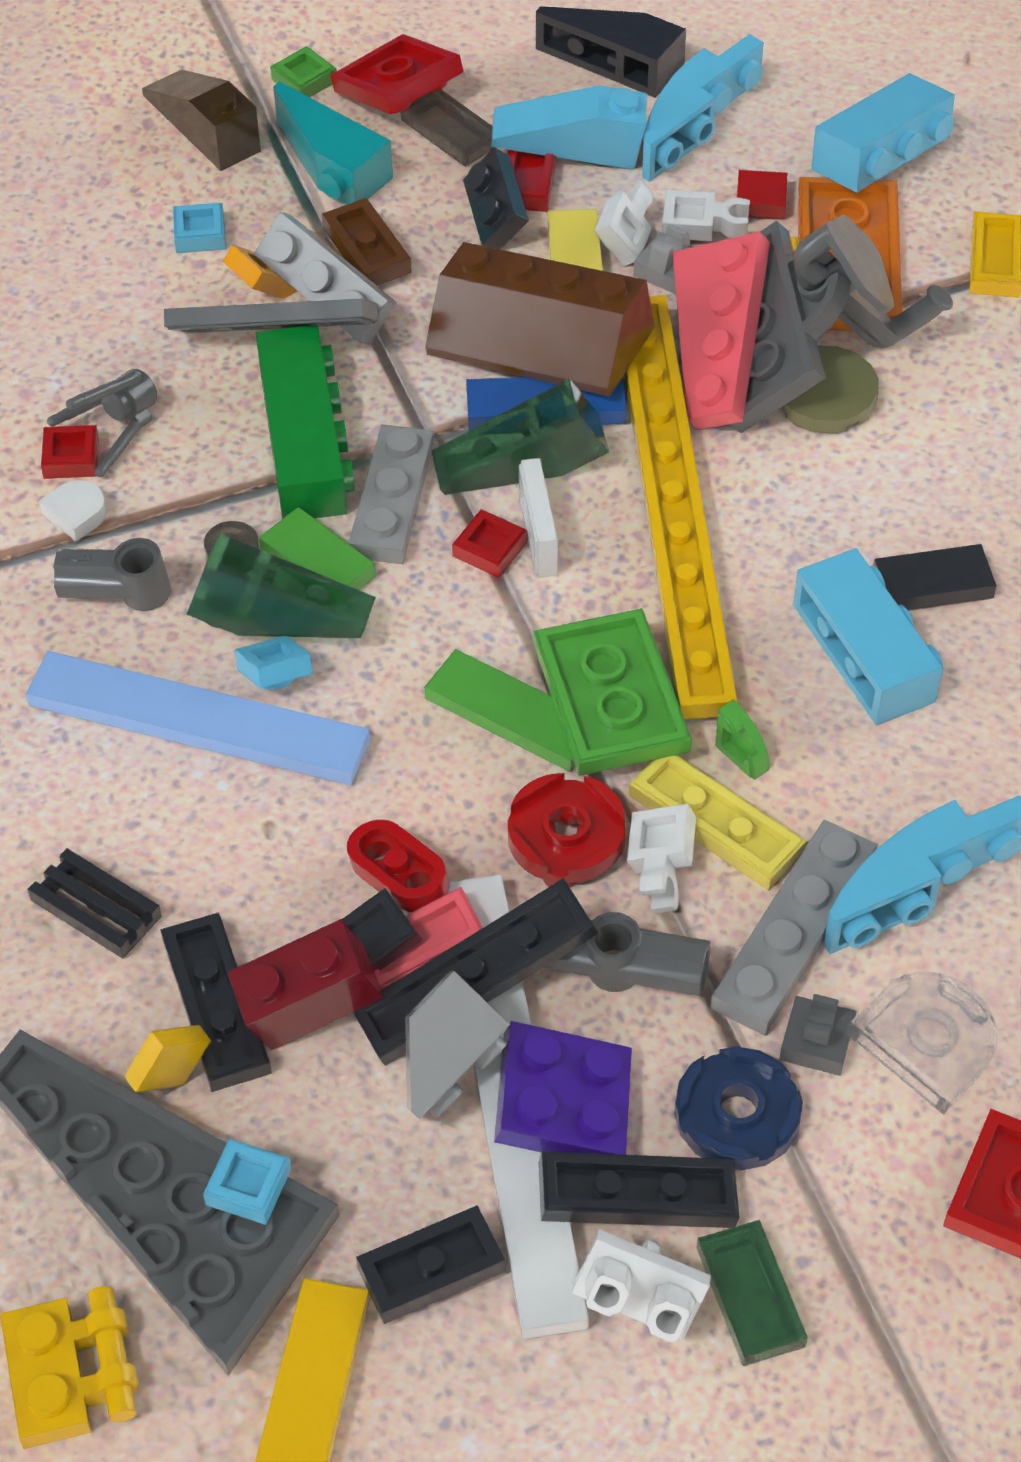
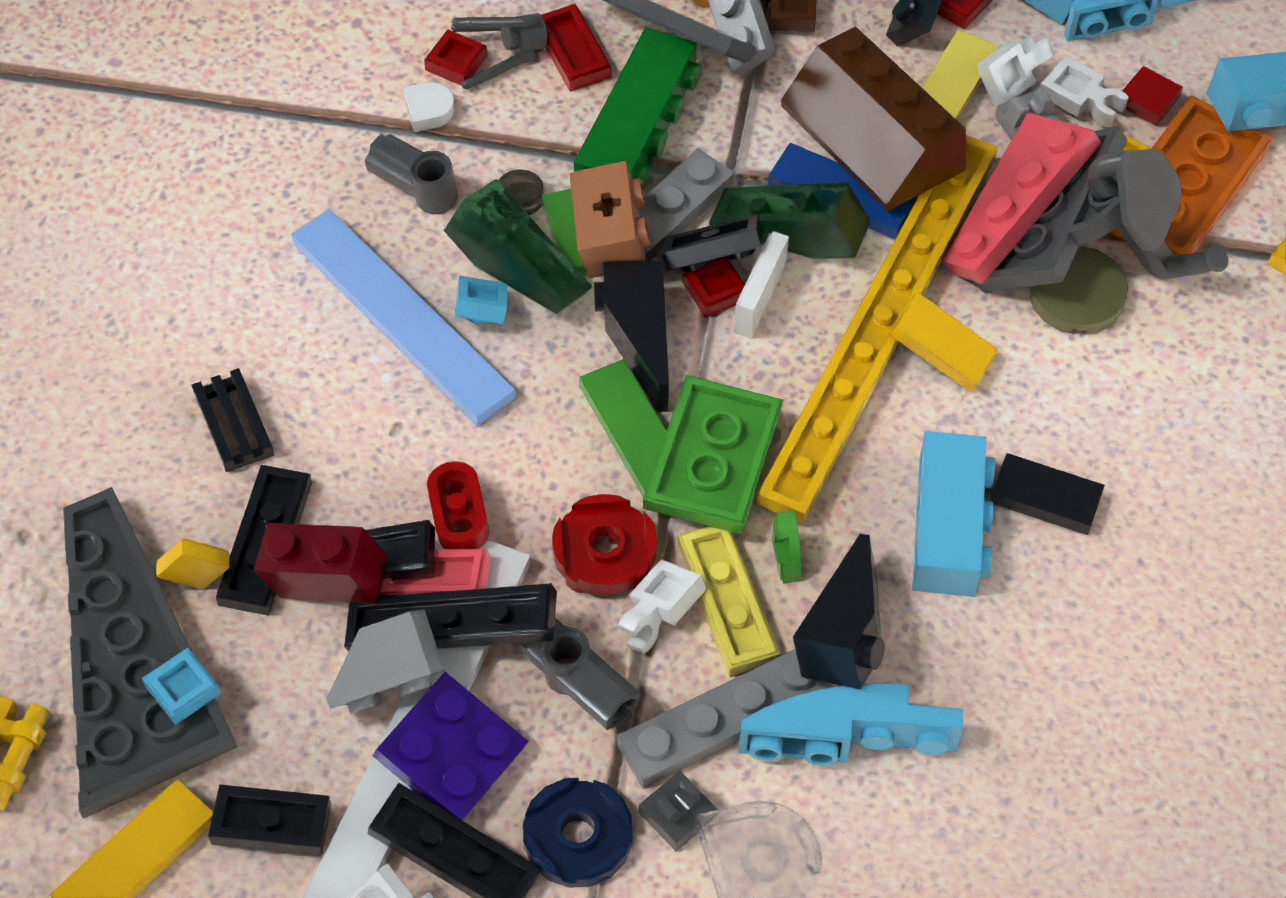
camera: 30 degrees right, 5 degrees up
(189, 390) = (575, 48): none -> red tile
(355, 522) = (608, 216): none -> nougat brick
(448, 609) = (637, 322): none -> black slope
(480, 489) = (730, 239): none -> black plate
(746, 488) = (943, 342): none -> yellow tile
(861, 774) = (843, 629): none -> black slope

